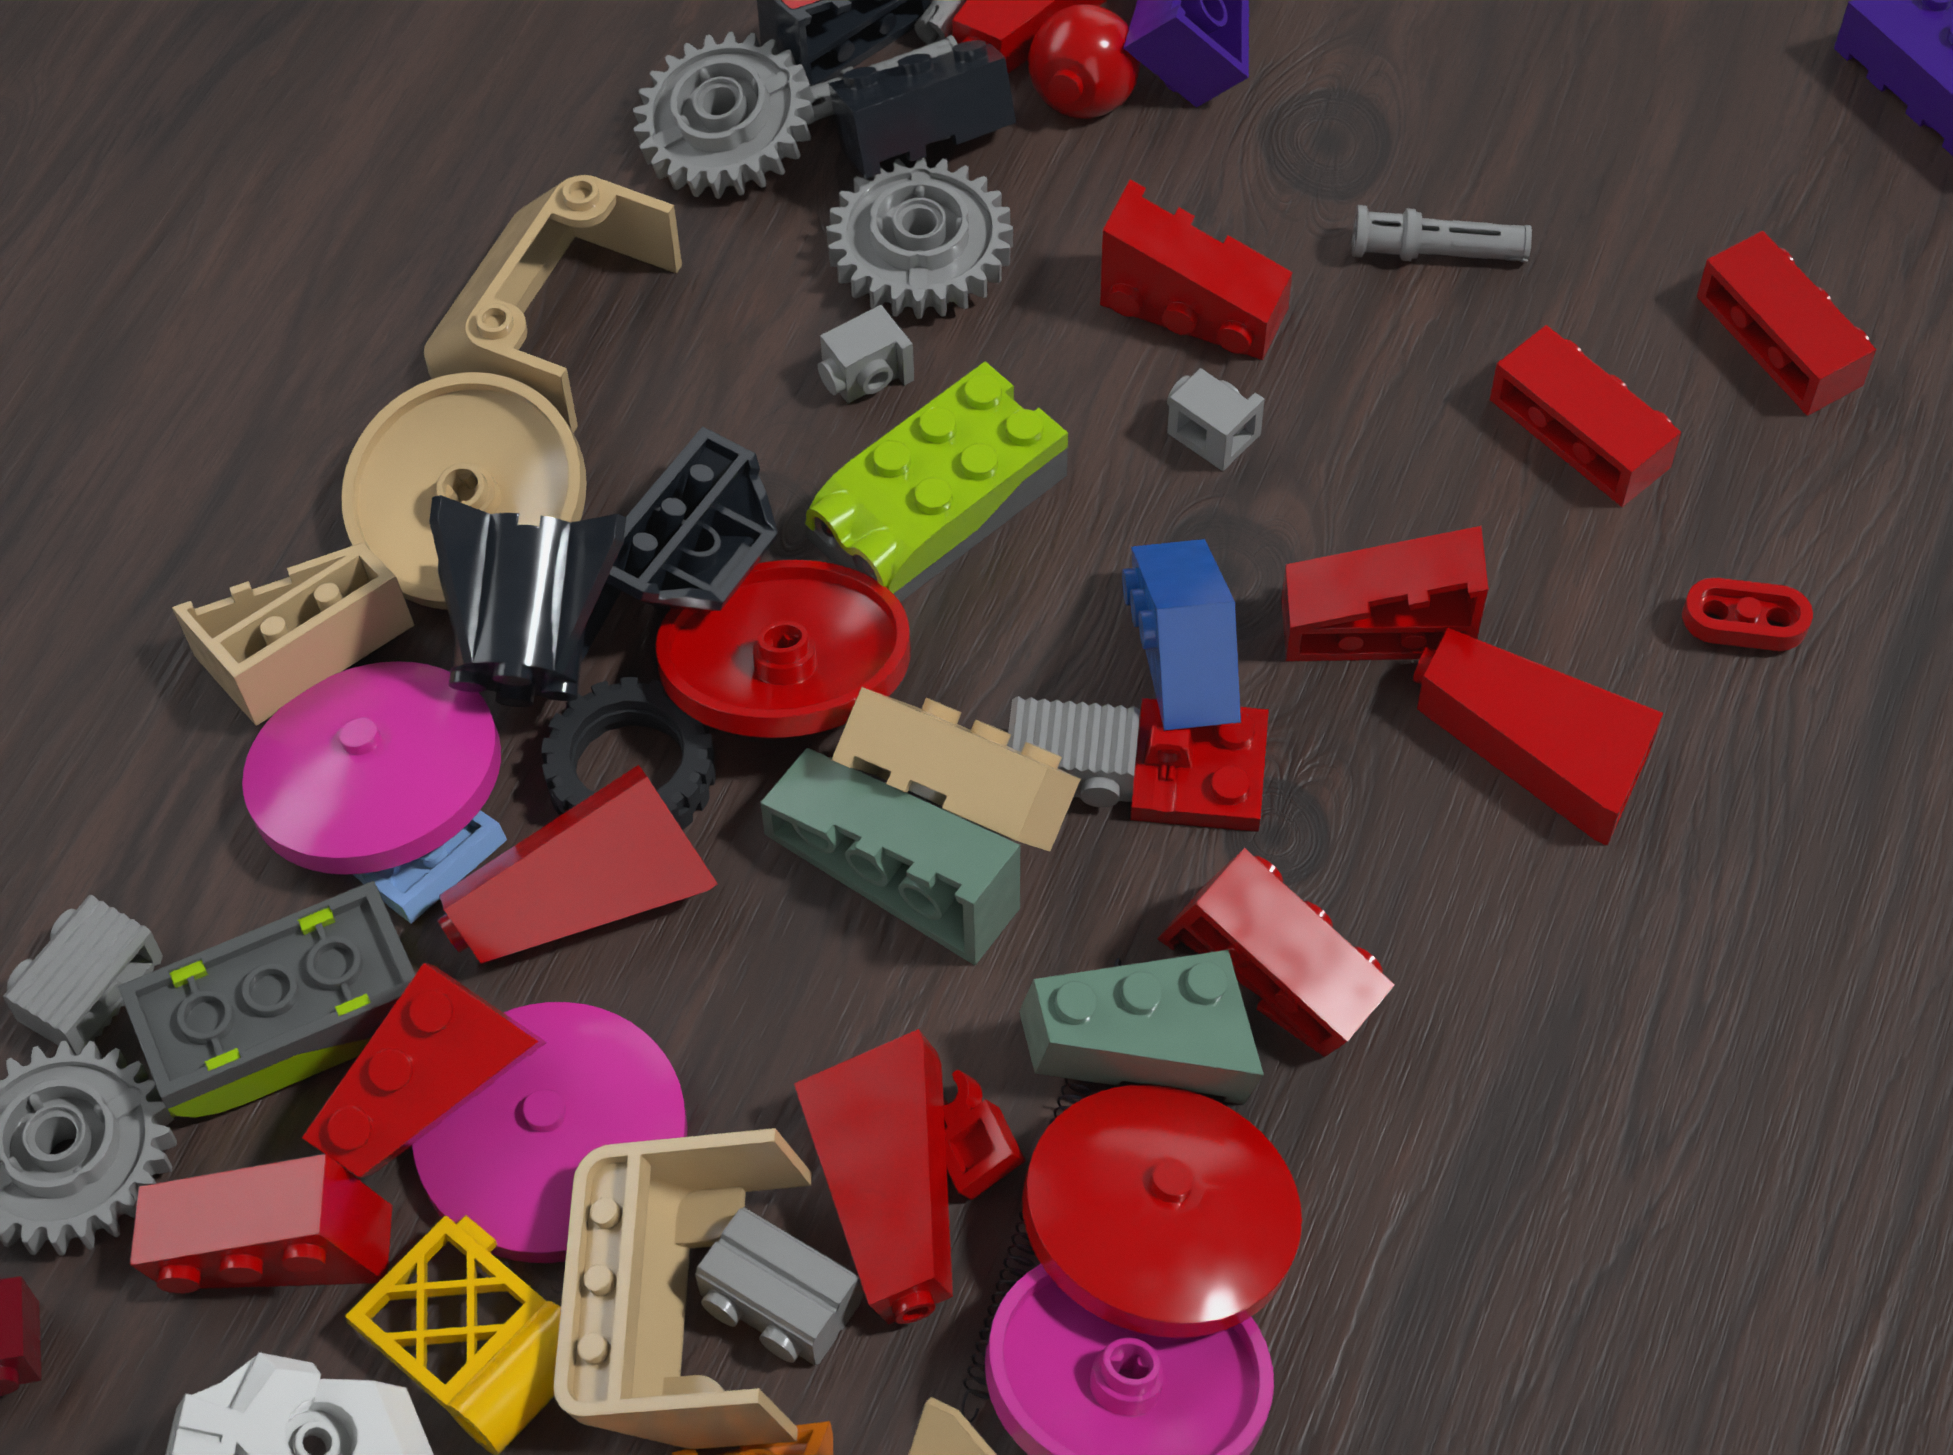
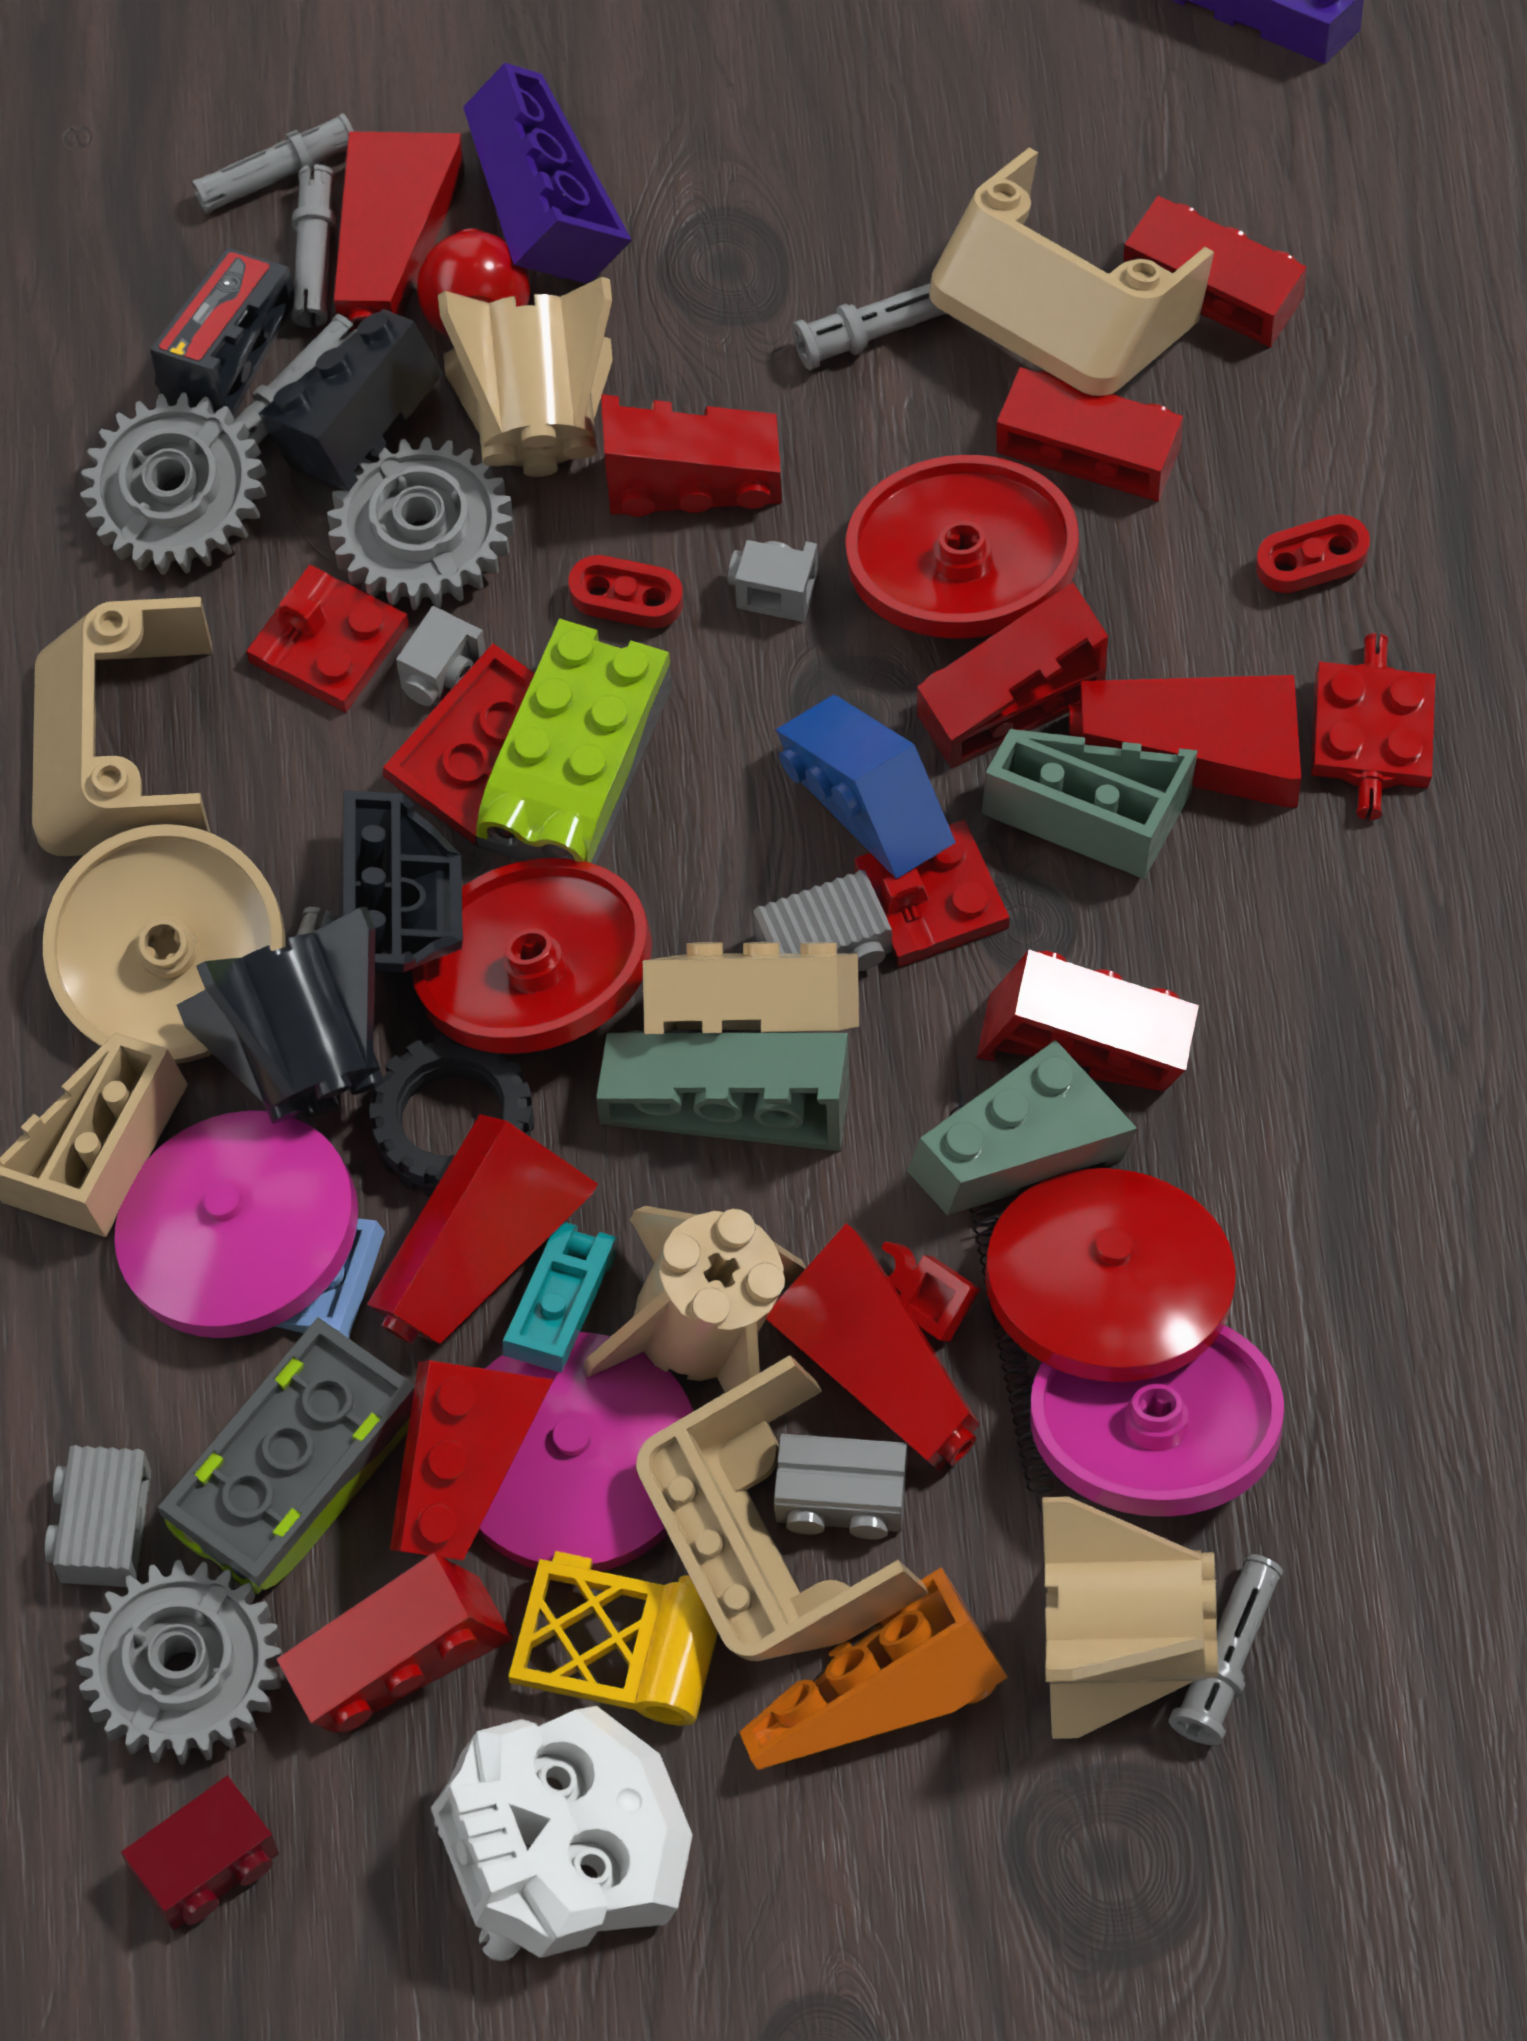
camera: 25 degrees left, 5 degrees up
(618, 972) = (559, 1297): none -> teal plate
(739, 1033) = (703, 1296): none -> tan brick
(780, 299) = (327, 638): none -> red hinge
(825, 435) = (458, 743): none -> red wing
(1074, 372) = (628, 590): none -> red plate
(1084, 141) = (531, 373): none -> tan brick
(1399, 742) = (1088, 796): none -> sand green wedge
(1401, 458) = (961, 545): none -> red dish
(1612, 286) = (1053, 304): none -> tan windscreen
(1723, 801) = (1373, 725): none -> red plate

